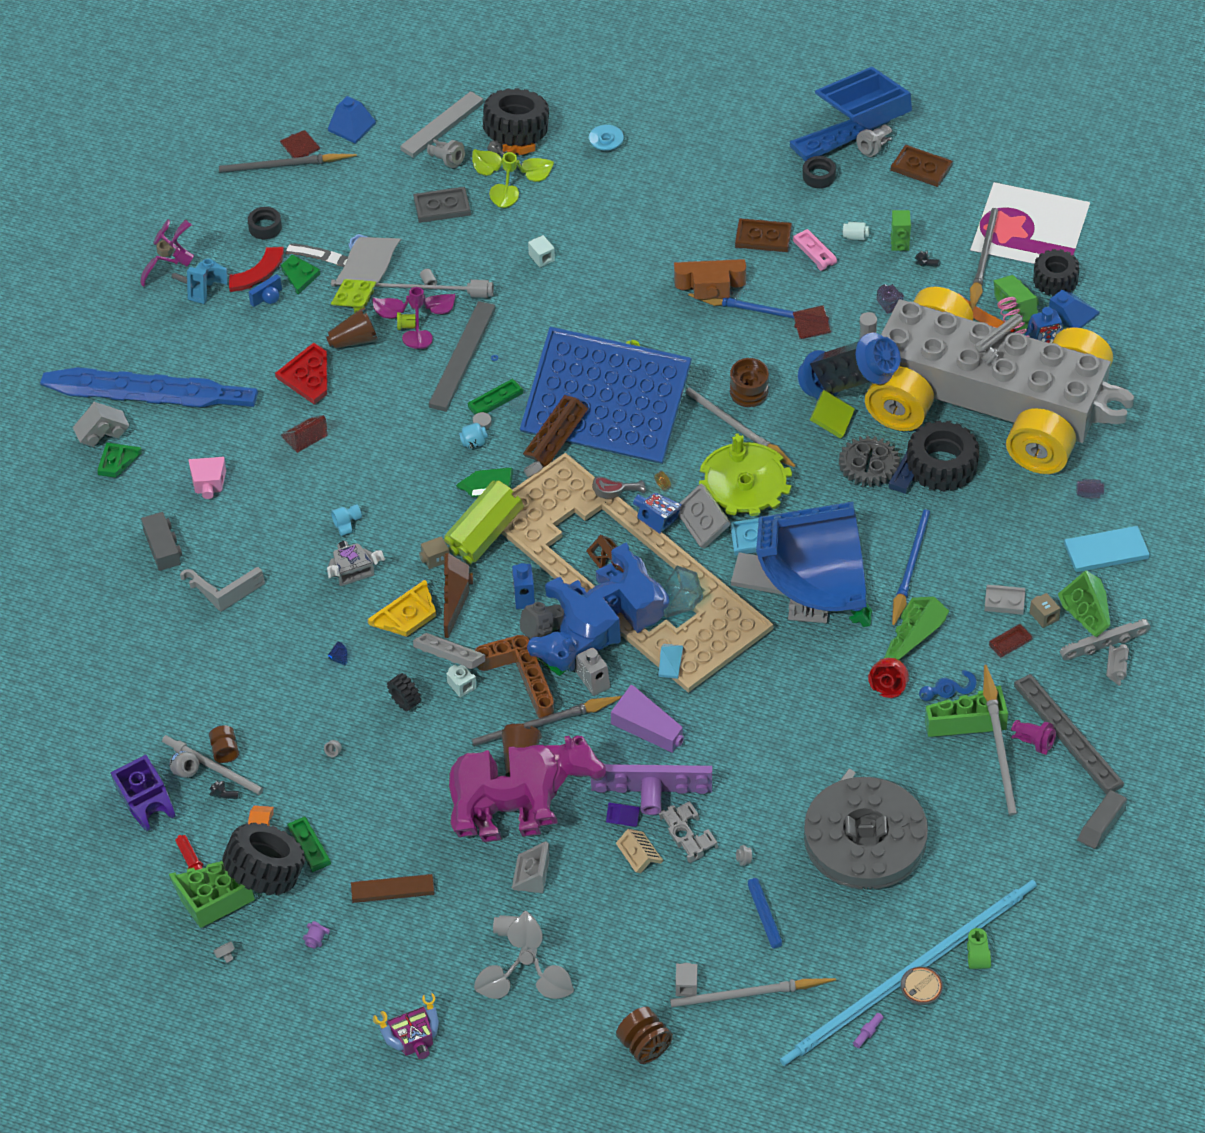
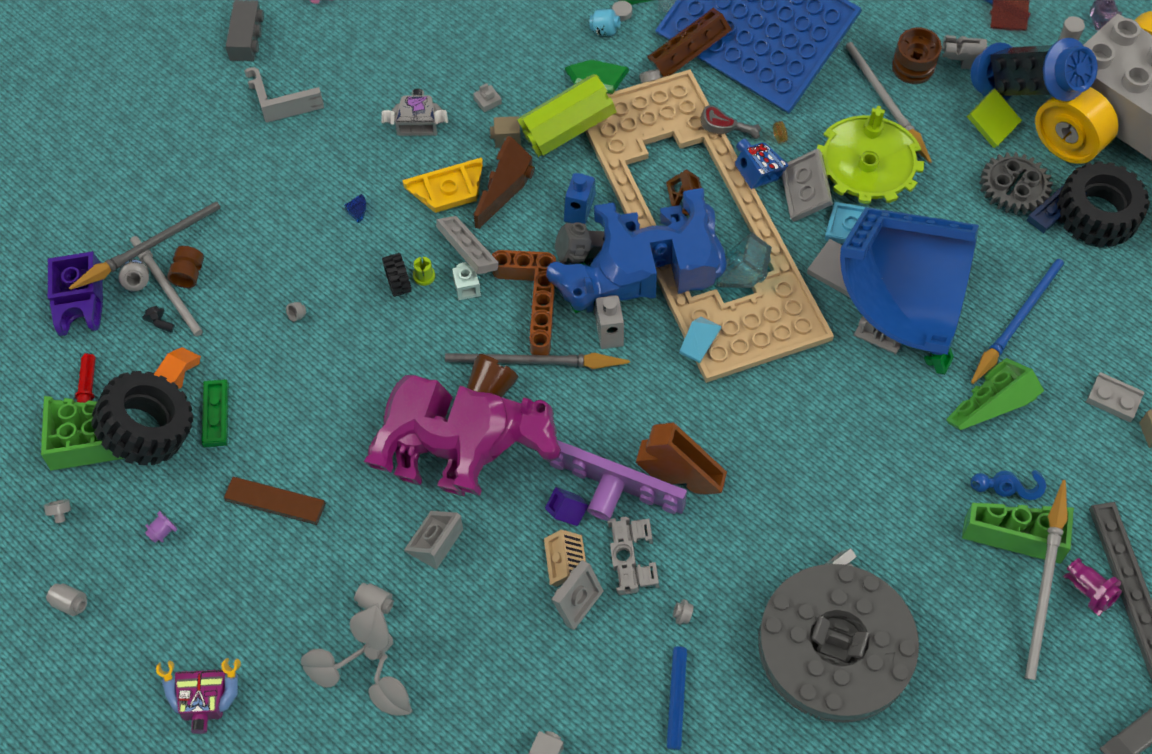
camera: 20 degrees right, 10 degrees up
(162, 765) = (101, 270): none -> dark grey piece
(270, 1007) = (66, 599): none -> light grey brick
(342, 518) = (434, 64): medium azure piece -> none
(402, 531) = (487, 97): none -> light grey tile
(422, 683) = (426, 267): none -> lime bush
(646, 720) = (640, 394): medium lavender slope -> none
(661, 867) = (577, 594): none -> light grey hinge
(696, 747) = (678, 459): none -> dark orange brick
(785, 365) = (963, 49): none -> light grey plate
(888, 677) = (942, 447): red cylinder -> none
(1010, 640) = (1104, 450): clear red tile -> none

